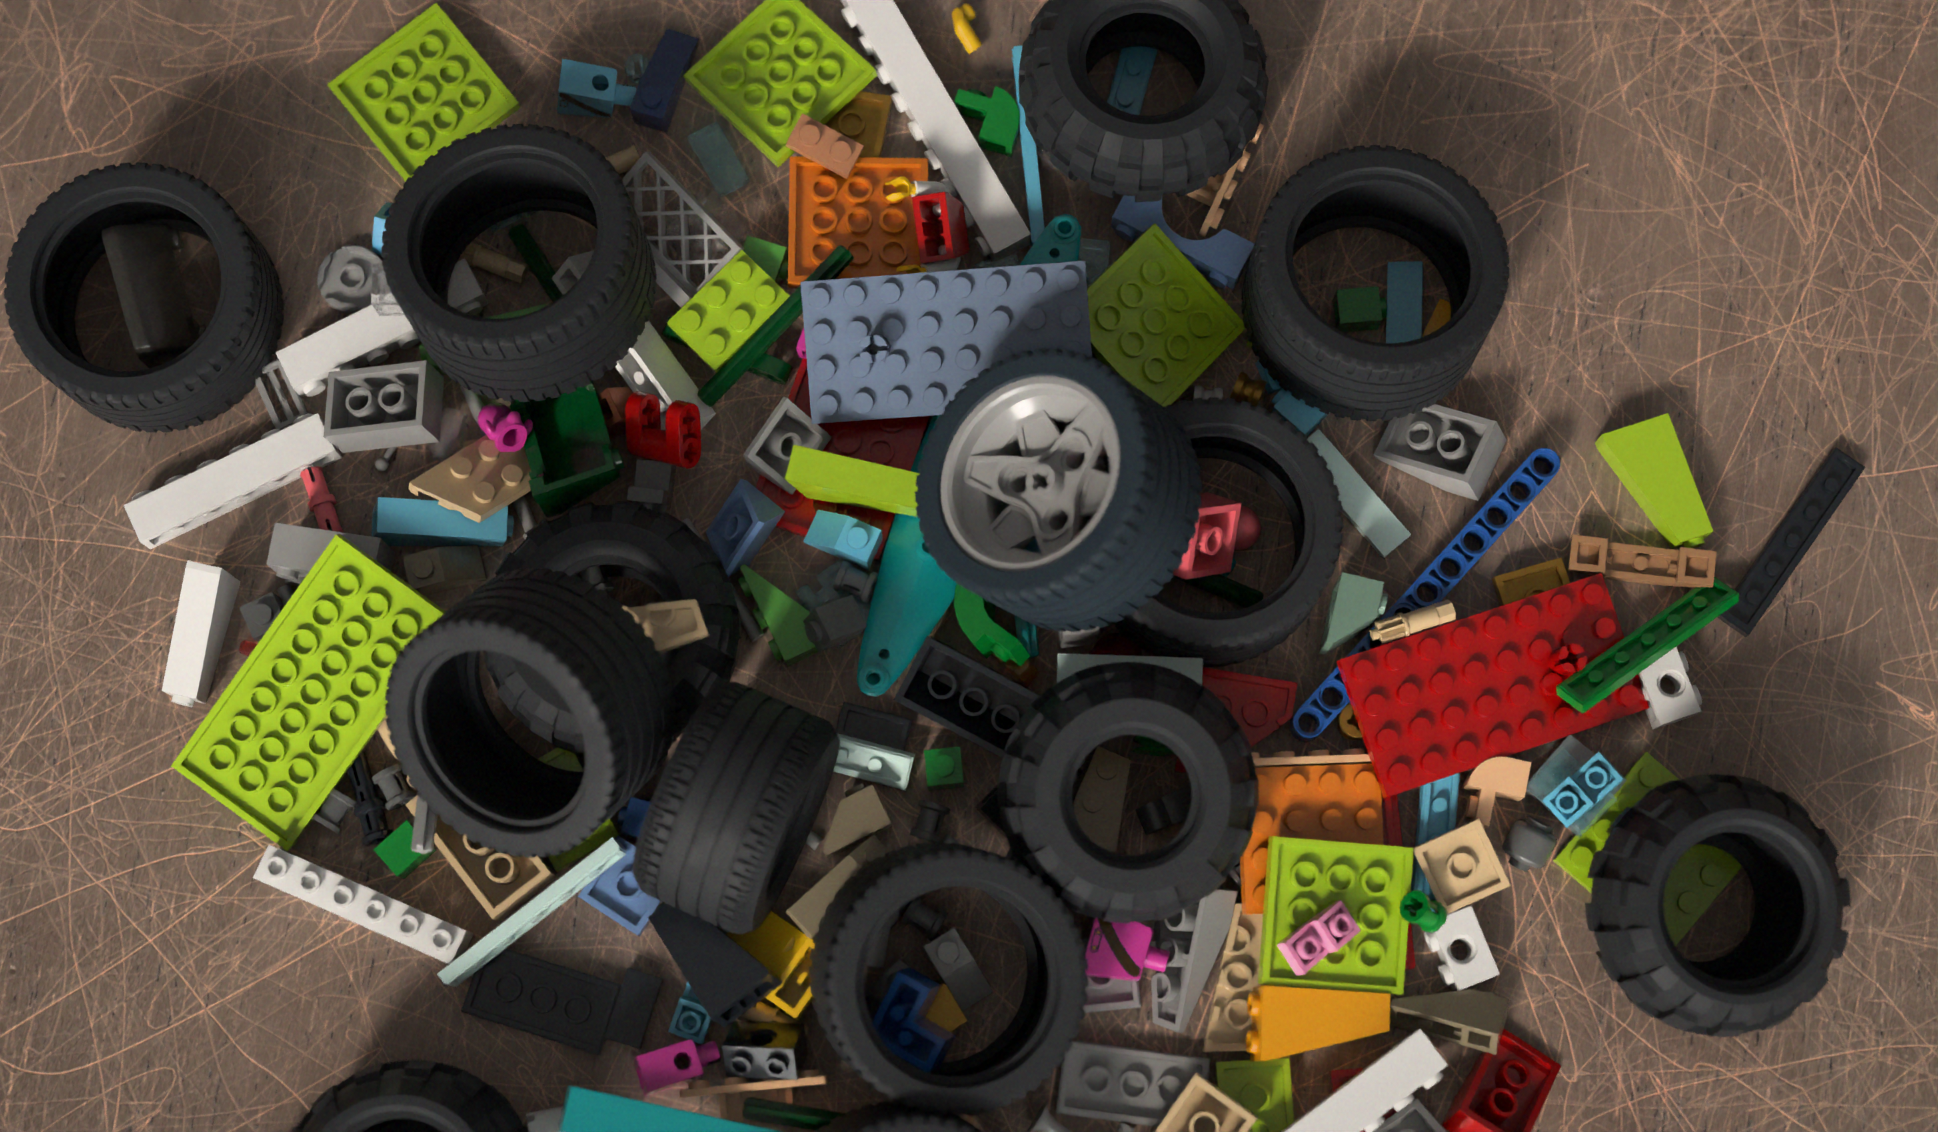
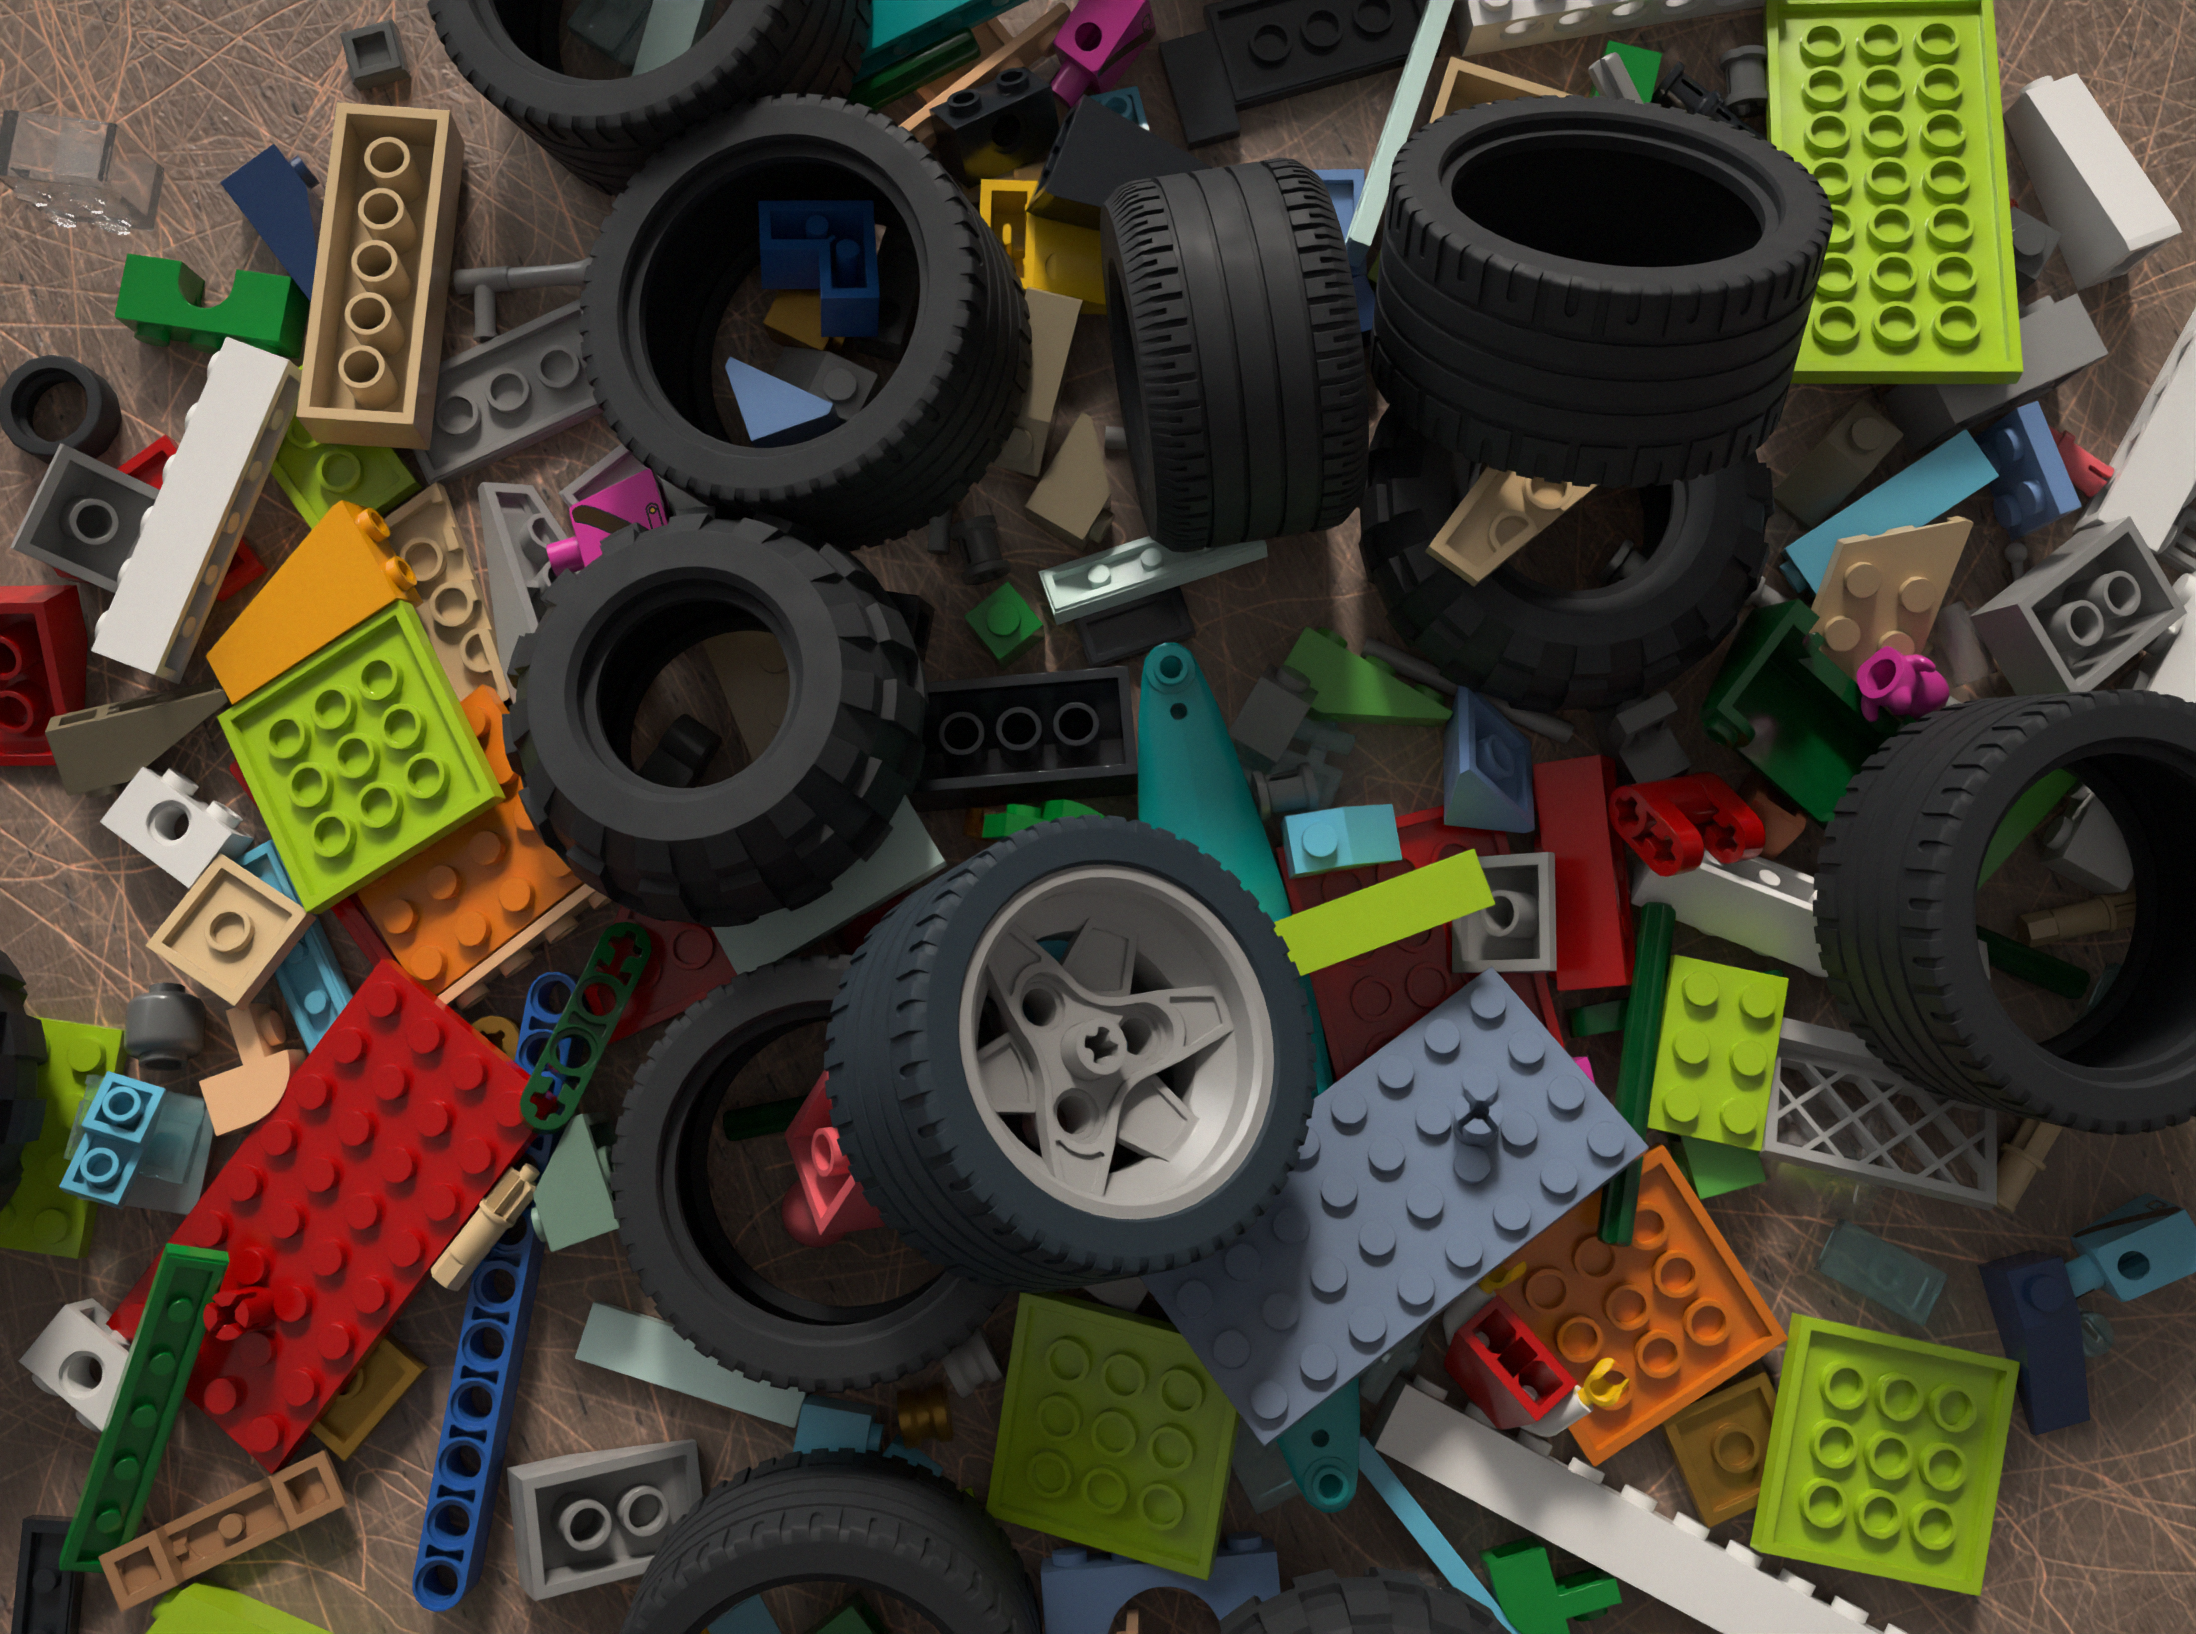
camera: 145 degrees right, 5 degrees up
(354, 494) = (2032, 477): none -> medium blue plate
(725, 441) = (1591, 872): none -> red brick
(824, 146) = (1752, 1384): nougat plate -> none
(993, 958) = (776, 410): none -> medium blue slope
(1302, 694) = (589, 1028): none -> dark green beam
(1318, 937) = (354, 718): bright pink slope -> none
(1424, 917) = (242, 817): green bush -> none

